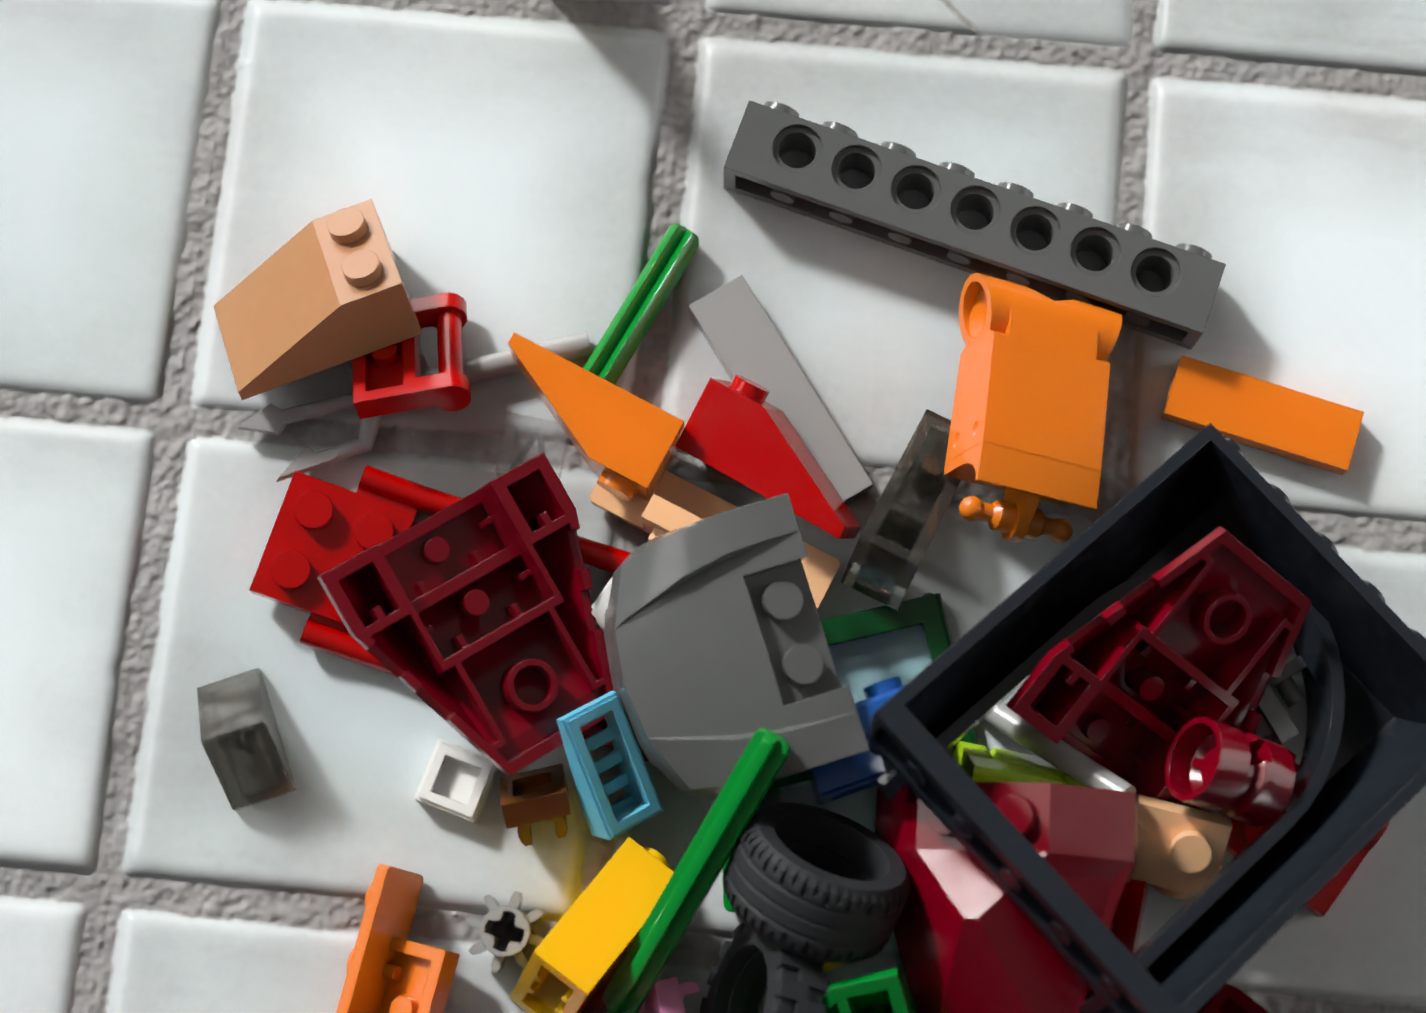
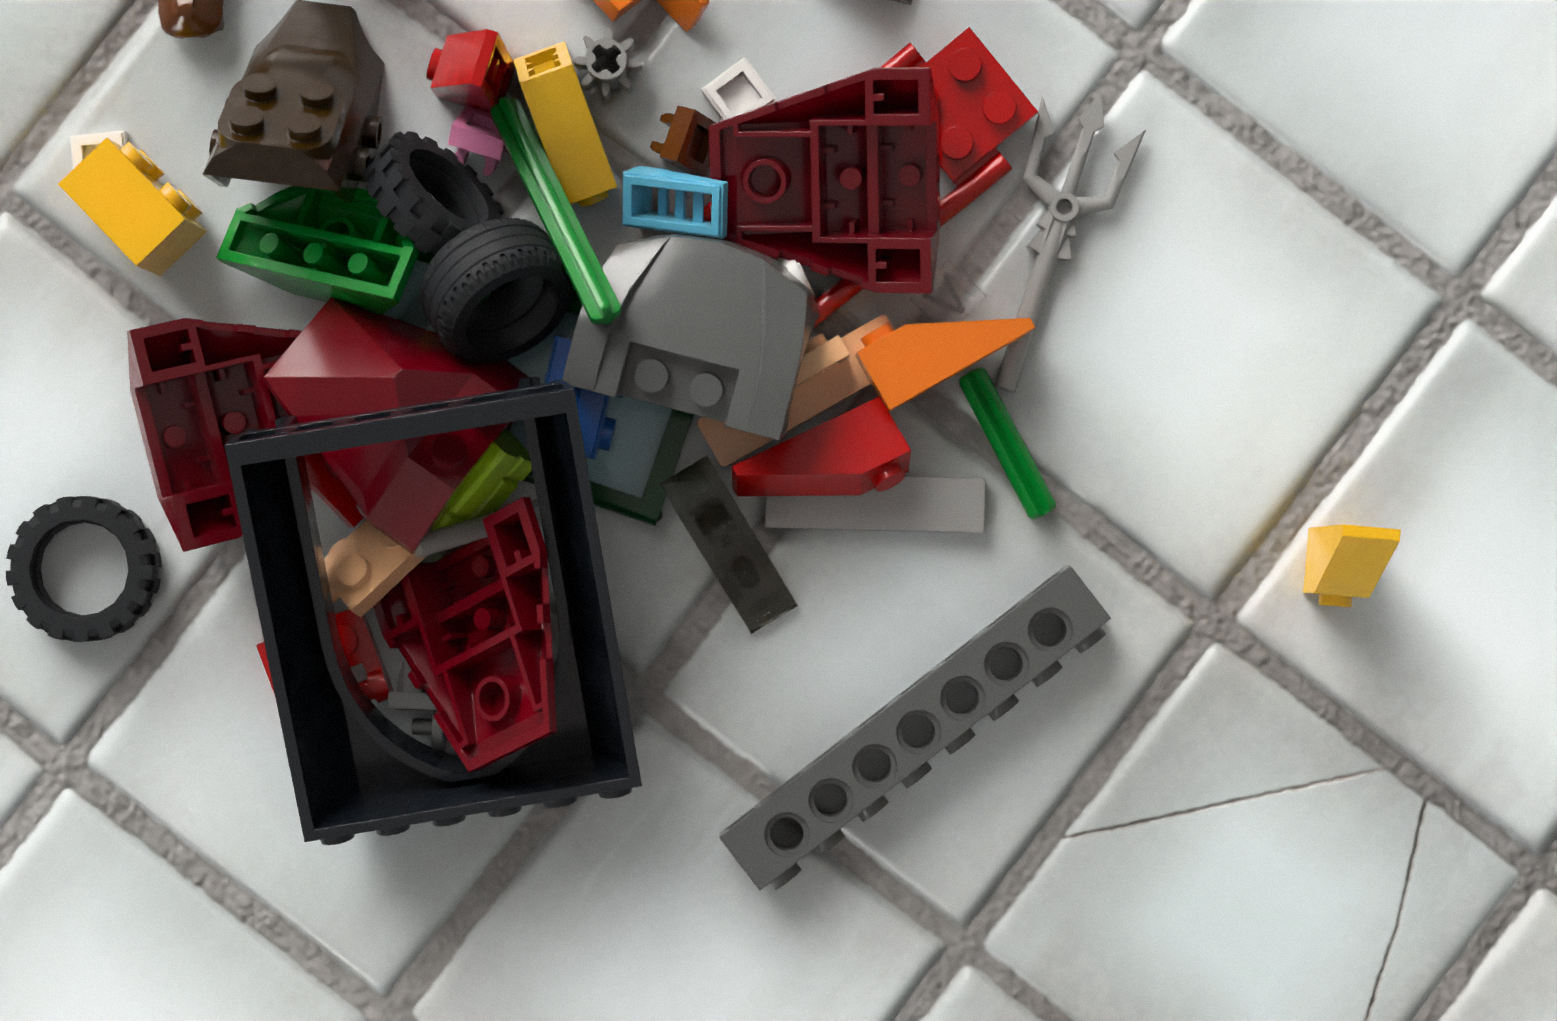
camera: 120 degrees right, 10 degrees up
(316, 303) = (1155, 201): slope -> none
(391, 377) = (1083, 232): red plate -> none
(1029, 405) = (744, 673): orange piece -> none
(1229, 772) = (388, 632): dark red wheel -> none
(1263, 415) = (636, 849): orange tile -> none

